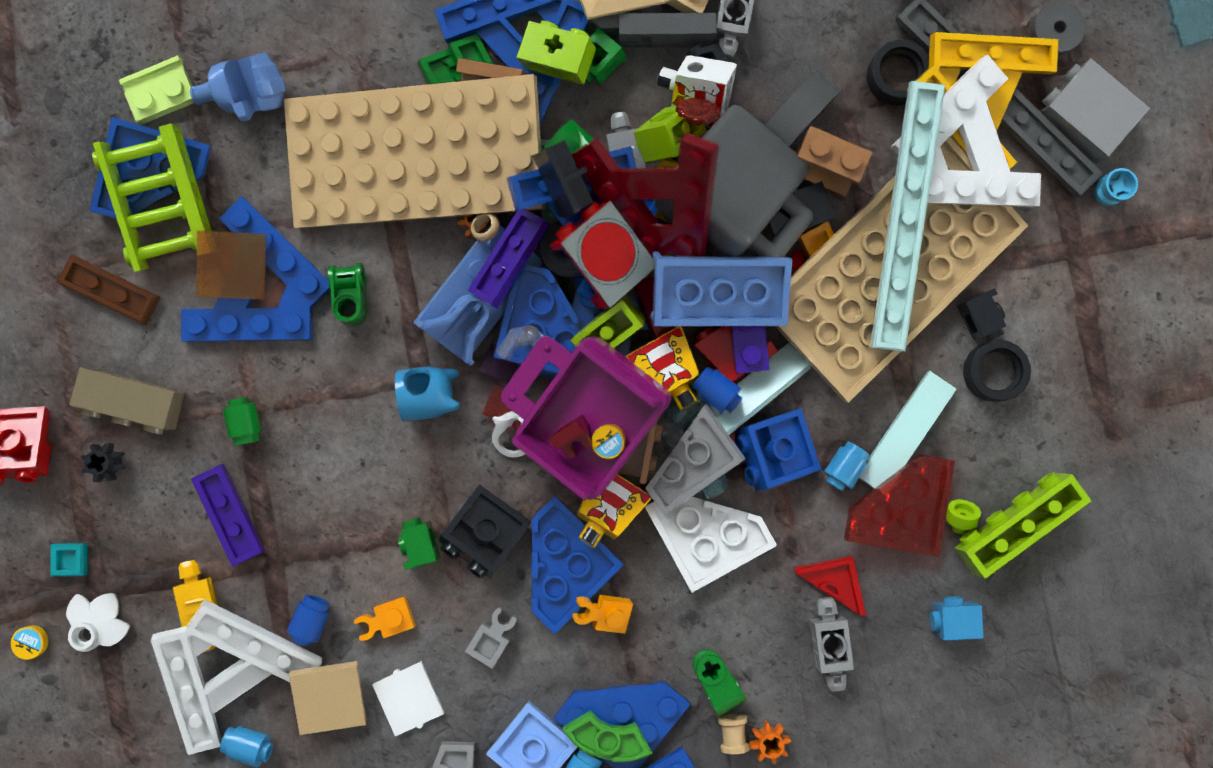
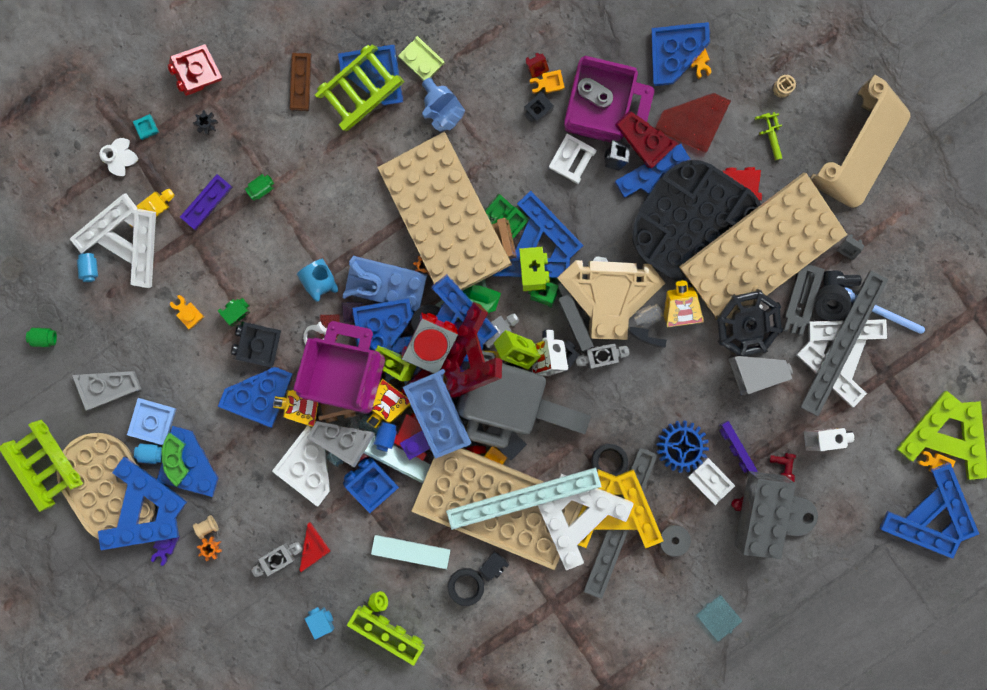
camera: 65 degrees right, 0 degrees up
(29, 642) = (92, 126): tile -> none
(126, 400) = (244, 120): dark tan brick -> none
(231, 265) = (341, 144): clear orange tile -> none
(233, 317) = (359, 153): blue plate -> none
(308, 620) = (168, 270): blue brick -> none
(328, 697) = (131, 300): tan tile -> none
(347, 287) = (355, 212): green piece -> none
(408, 698) = (149, 342): white piece -> none
(489, 640) = (198, 373): light grey plate -> none
(492, 231) = (419, 277): tan piece -> none
(508, 257) = (407, 292): dark purple plate -> none
(518, 337) = (367, 316): clear arm -> none
(563, 179) = (459, 304): black panel -> none
(573, 431) = (327, 367): dark red tile -> none
(607, 615) = (240, 430): light orange plate -> none
(609, 441) = (331, 389): tile -> none
(698, 110) = (532, 359): clear red piece -> none
(719, 684) = (228, 508): green piece -> none
(832, 161) = (537, 443): medium nougat panel -> none
(846, 466) = (377, 526): dark azure brick -> none
(905, 509) = (367, 568): clear red plate -> none
(1093, 110) = (635, 578): light grey brick -> none
(1122, 183) = (597, 613): medium azure wheel -> none

